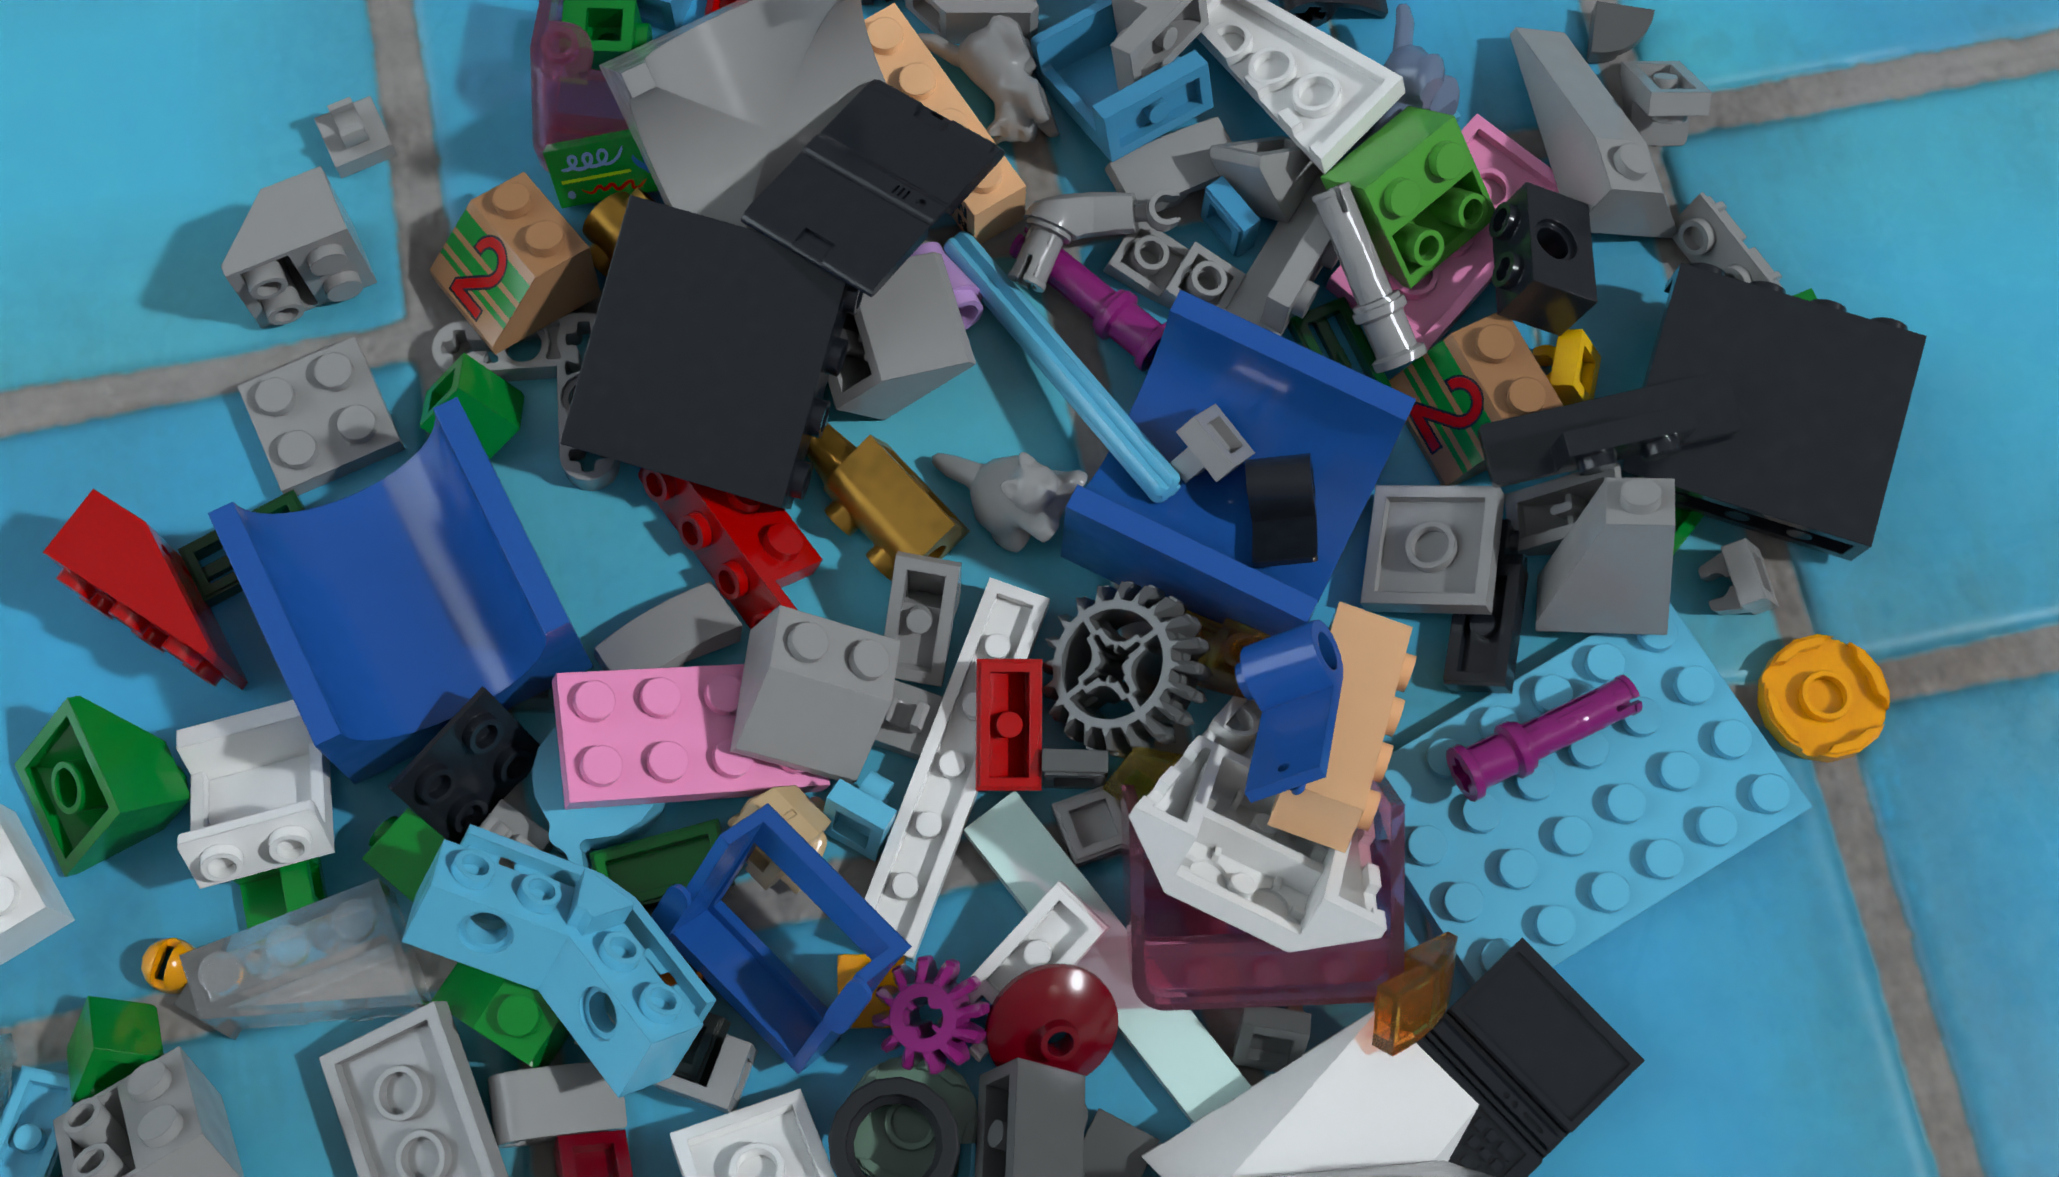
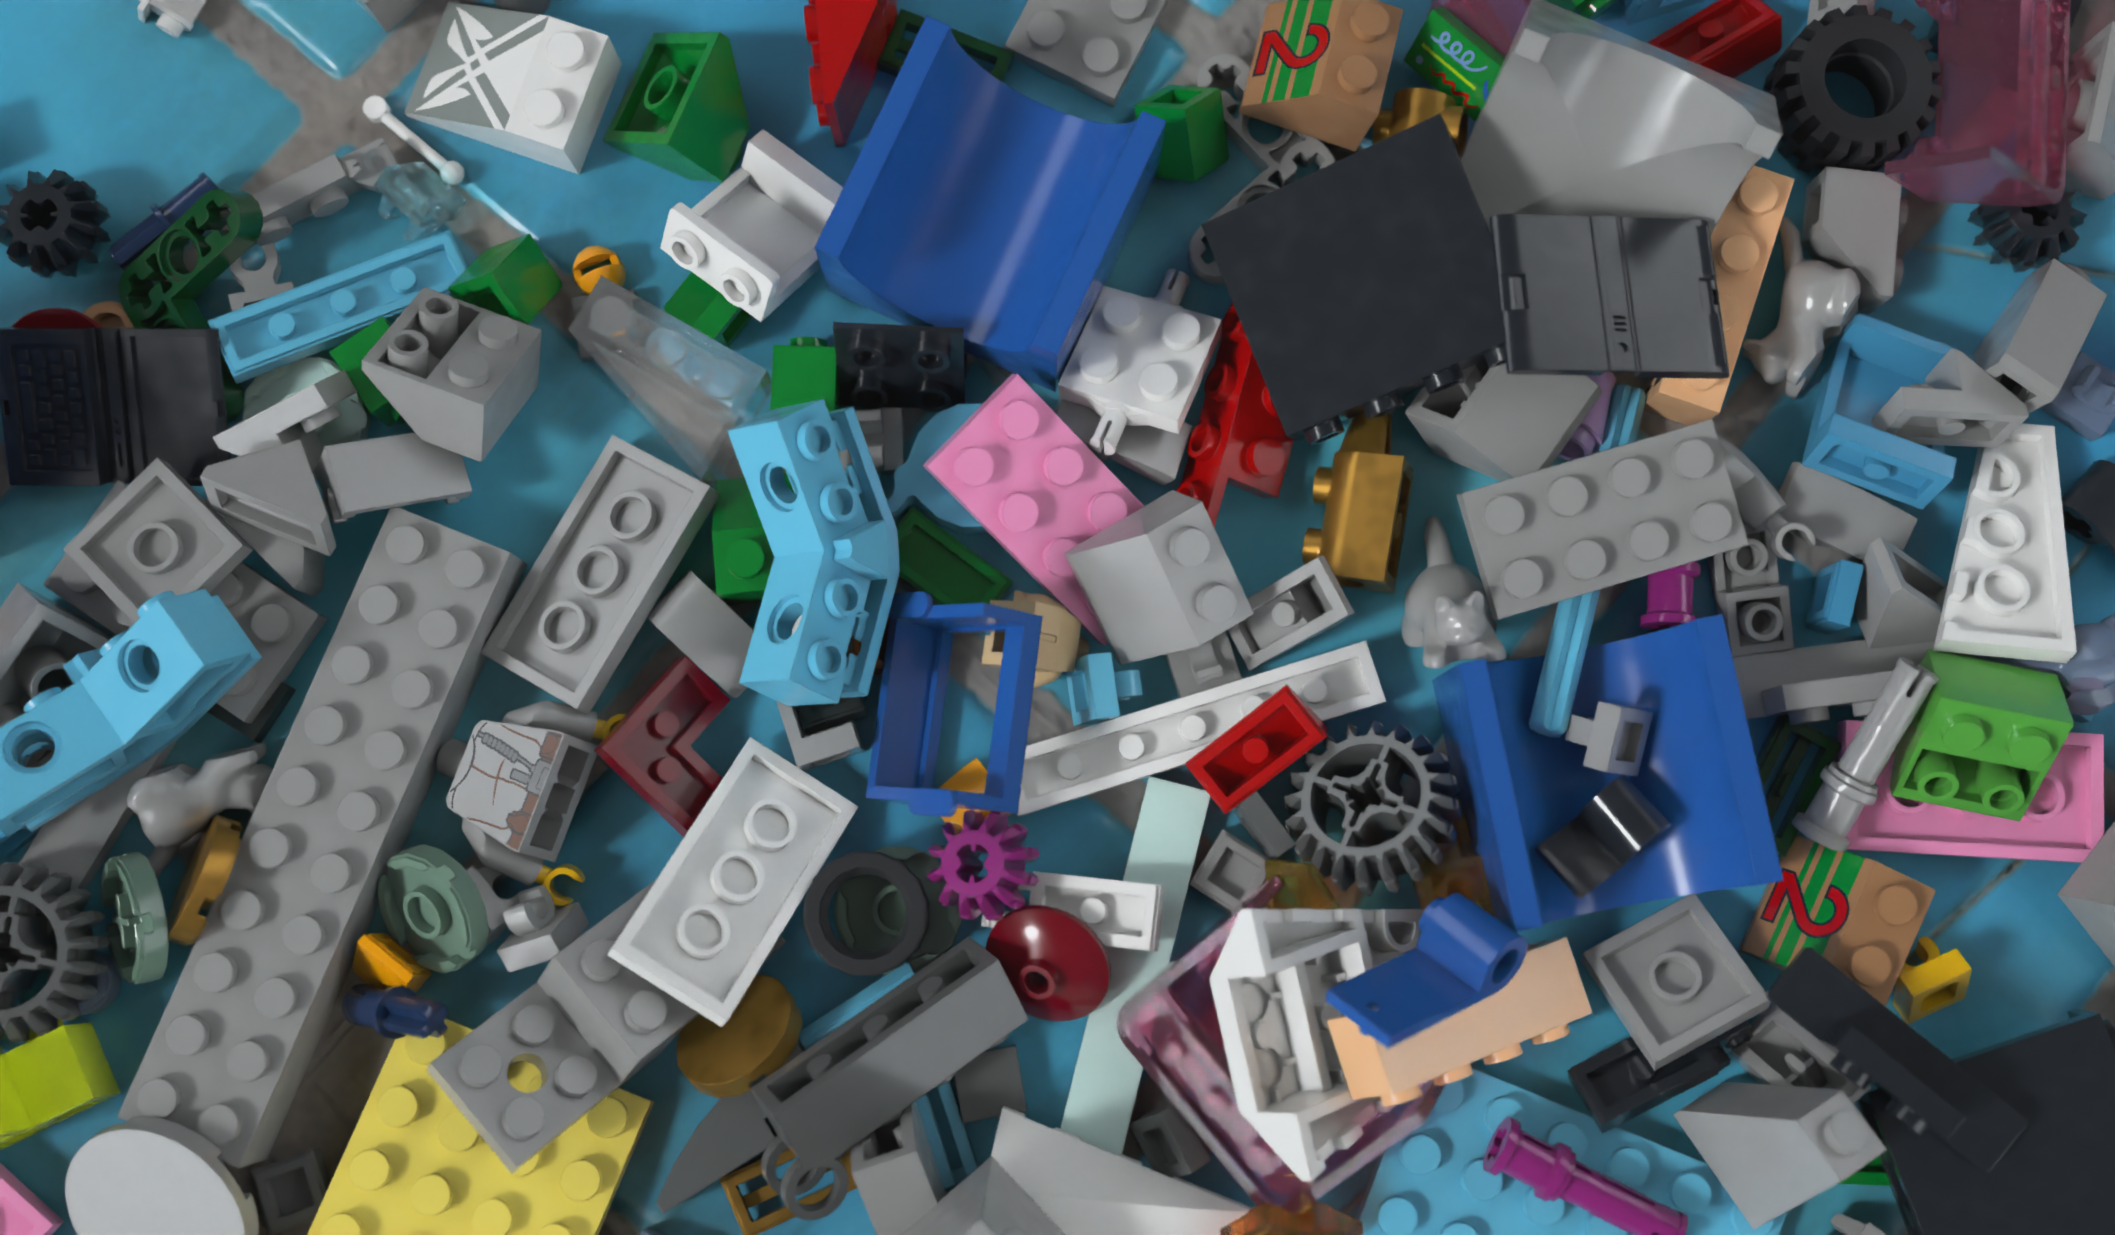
camera: 55 degrees right, 10 degrees up
(625, 578) = (1140, 360): none -> white plate
(1037, 327) = (1602, 519): none -> light grey plate
(1543, 259) = (2007, 891): black brick -> none

